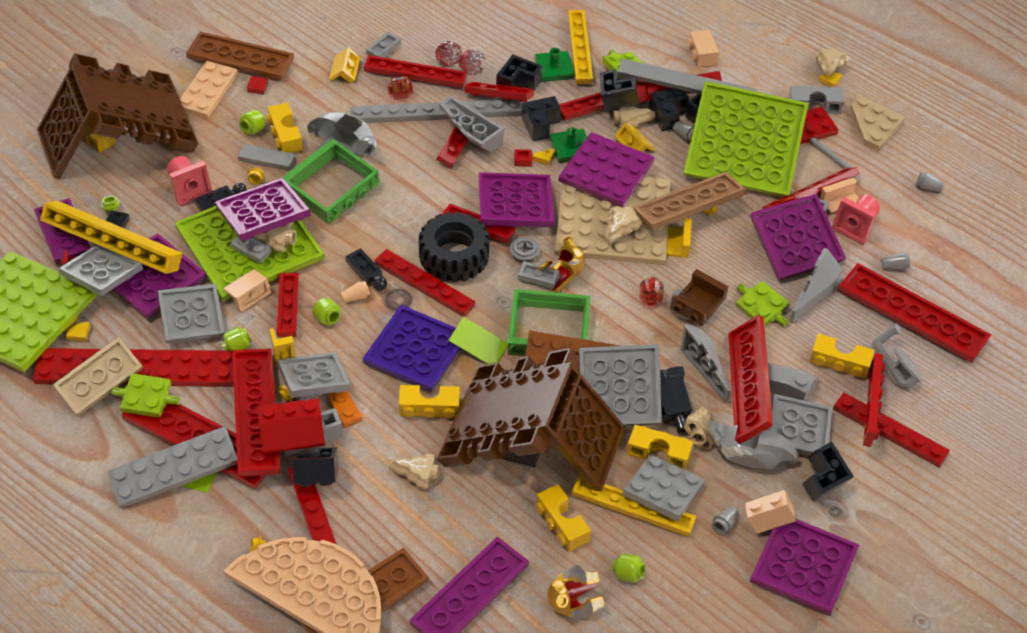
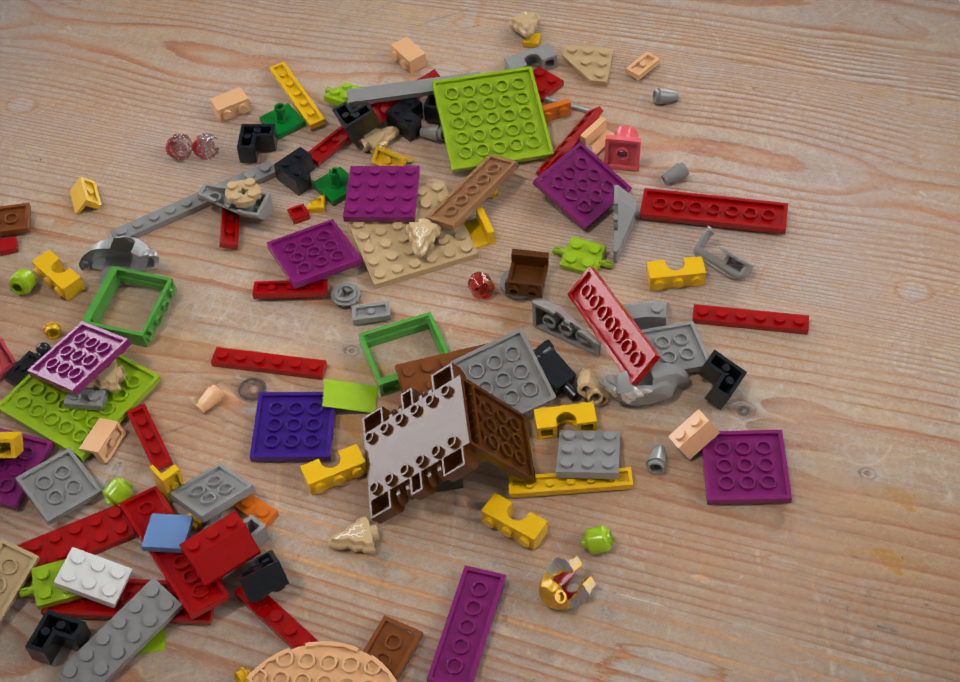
camera: 20 degrees left, 0 degrees up
(123, 437) = (56, 632): none -> black brick
(177, 403) = (93, 577): none -> white plate
(256, 391) = (167, 532): none -> medium blue tile
(266, 157) = (53, 309): light grey tile -> none
(326, 311) = (191, 428): lime head -> none
(366, 269) = (208, 373): black plate -> none
(384, 45) = (112, 163): light grey plate -> none
(400, 88) = (149, 195): clear red head -> none
(415, 71) = (155, 175): red plate -> none
(456, 264) = (277, 301): black tyre -> none
(475, 112) = (249, 187): none -> tan plate
(501, 91) = (241, 163): red plate -> none
(514, 32) = (230, 104): none -> light nougat brick
(569, 264) = (394, 289): pearl gold piece -> none
(814, 155) = (557, 110): none -> orange plate
(873, 404) = (726, 301): red plate -> none
(924, 144) = (642, 65): none -> light nougat plate

